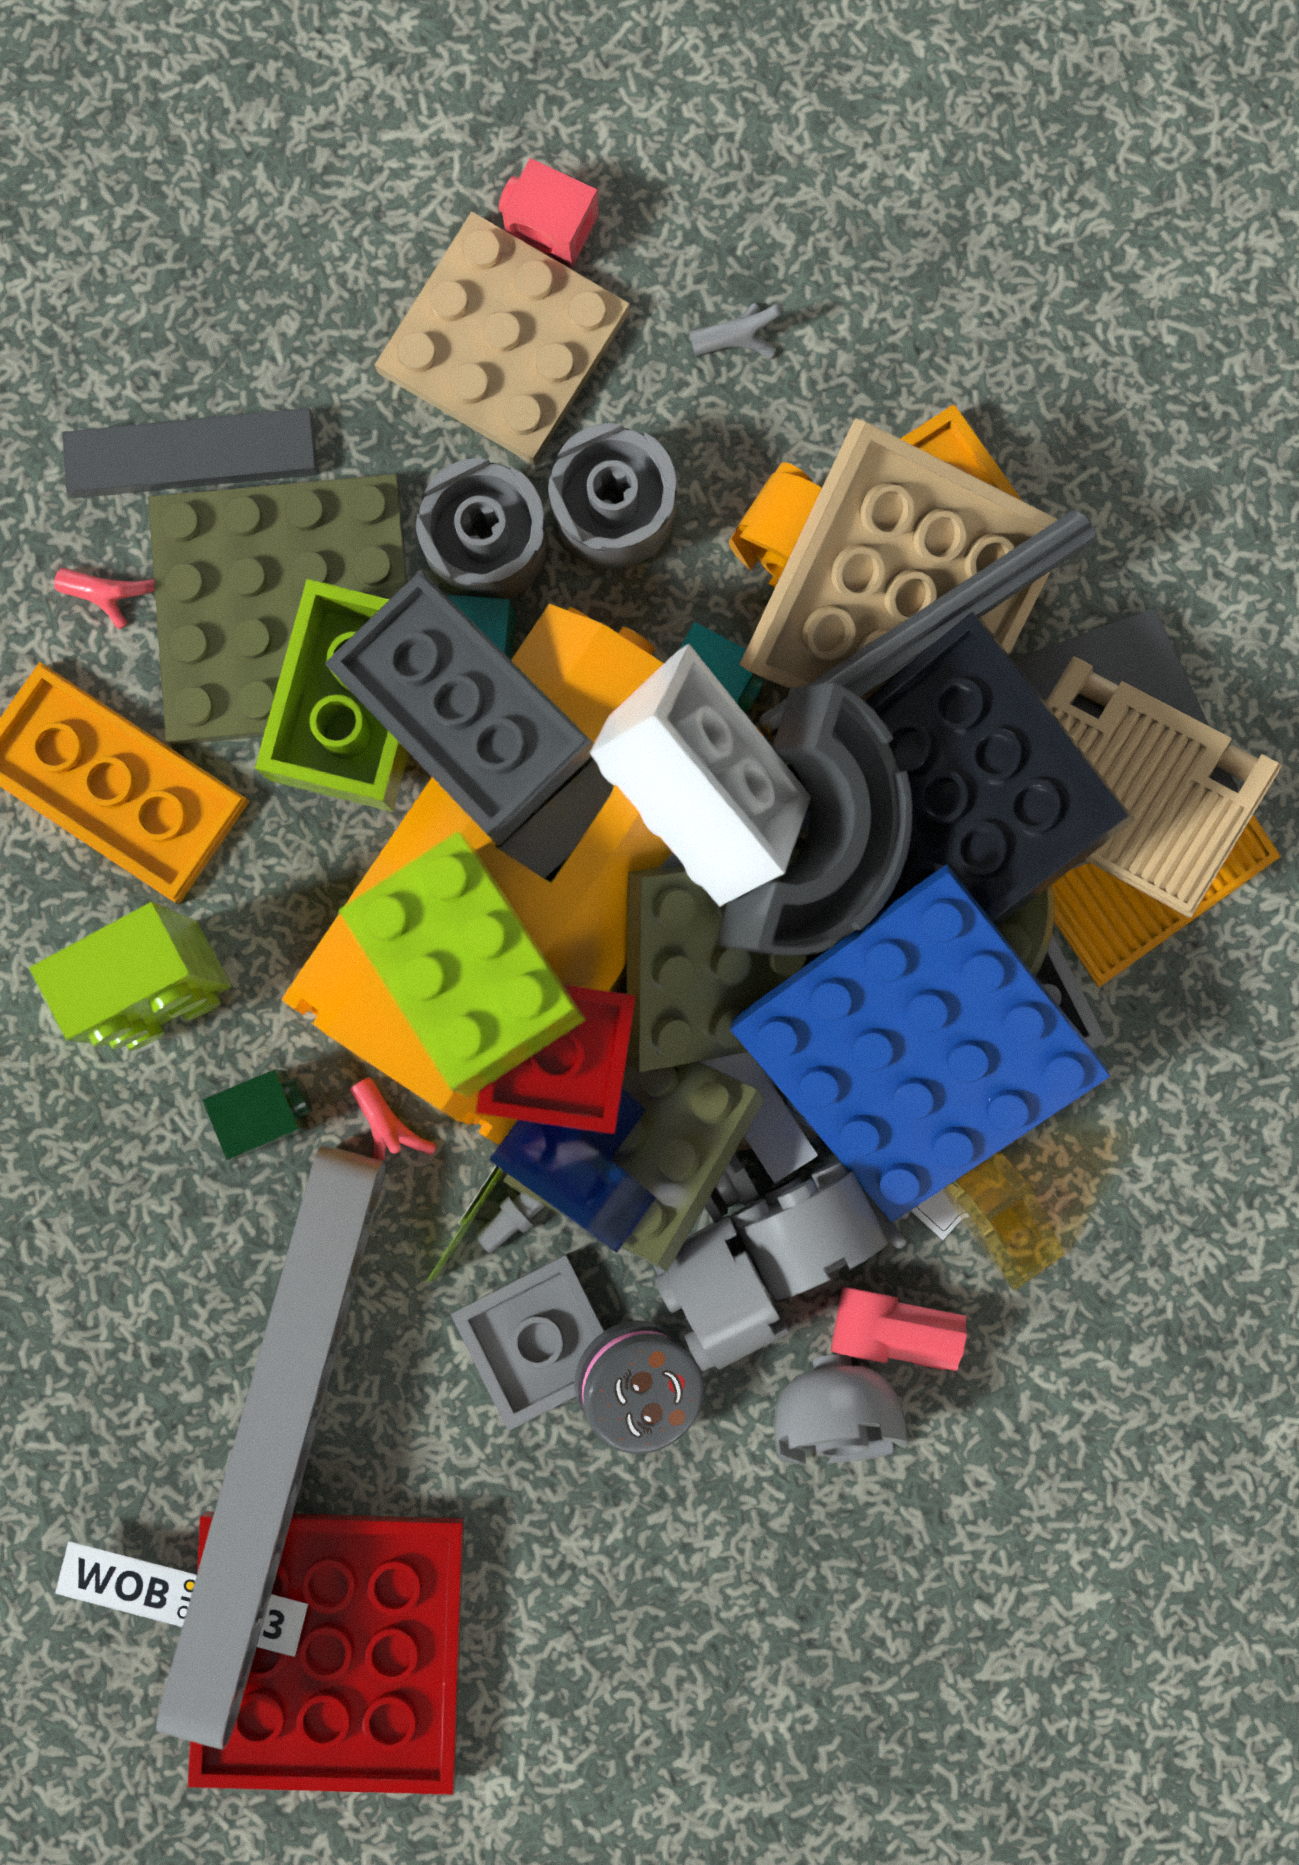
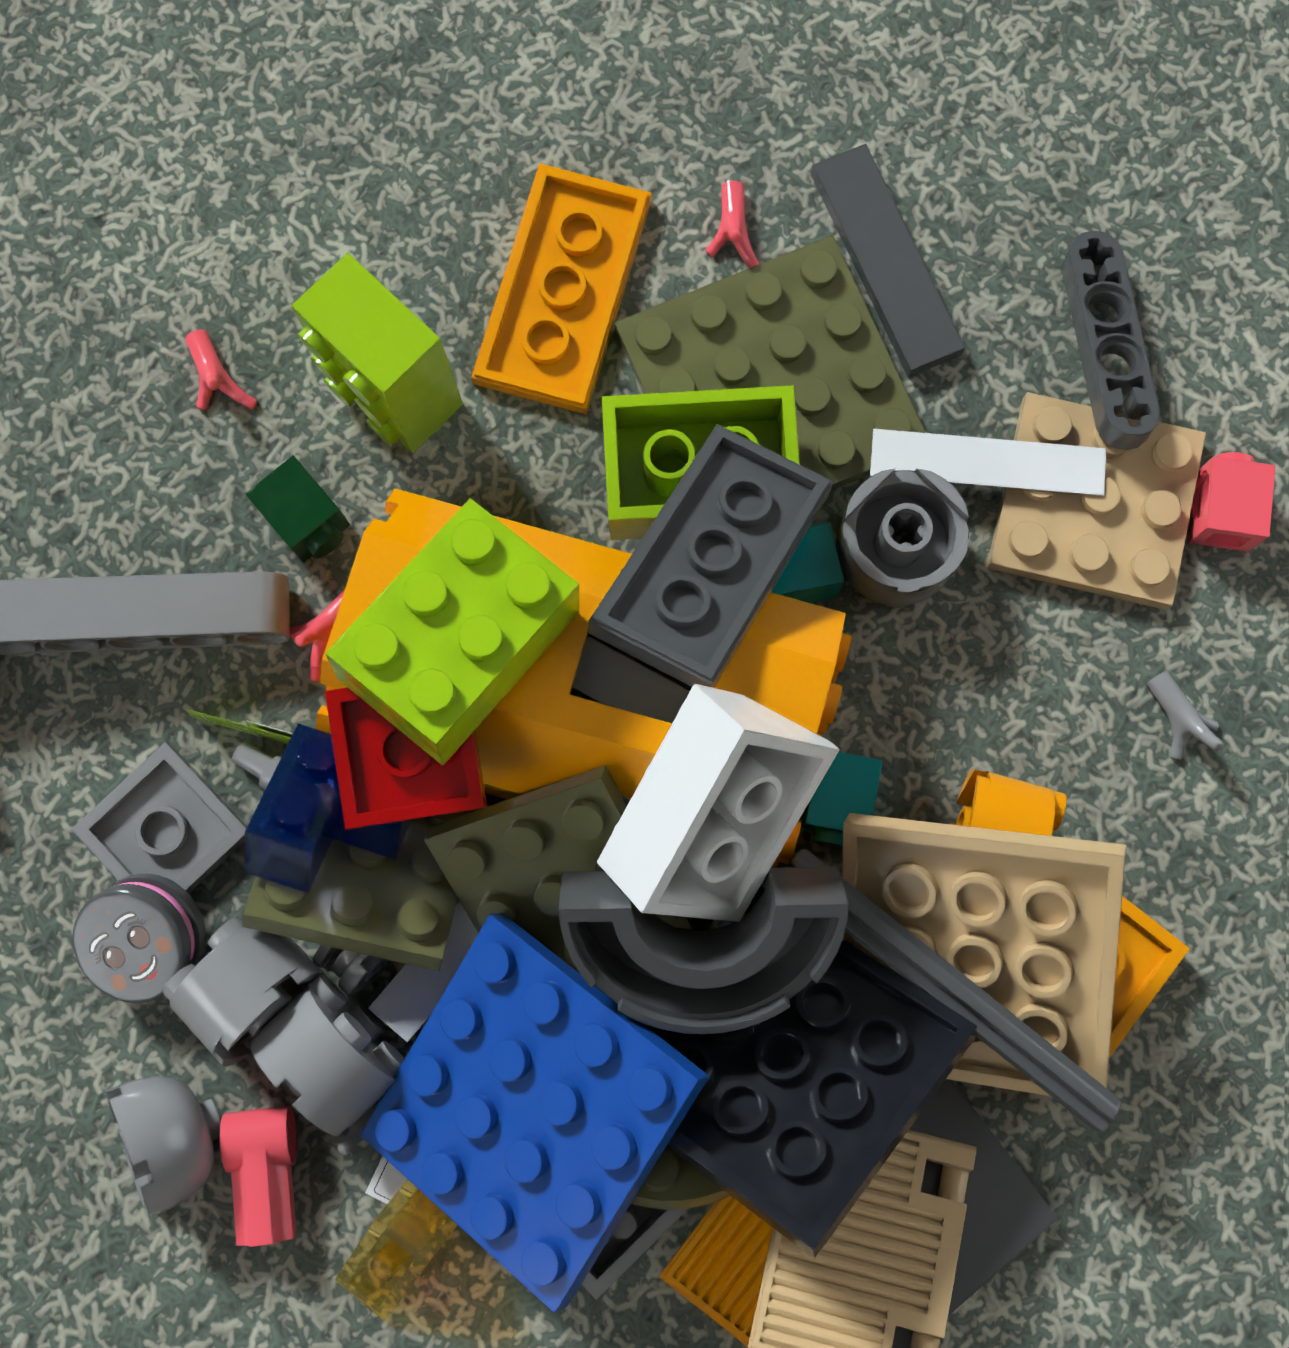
camera: 75 degrees right, 5 degrees down
(78, 1165) = (211, 372): none -> coral bar
(352, 257) = (1117, 338): none -> dark grey beam
(434, 424) = (992, 461): none -> white sticker
(633, 468) = (960, 615): light grey brick -> none

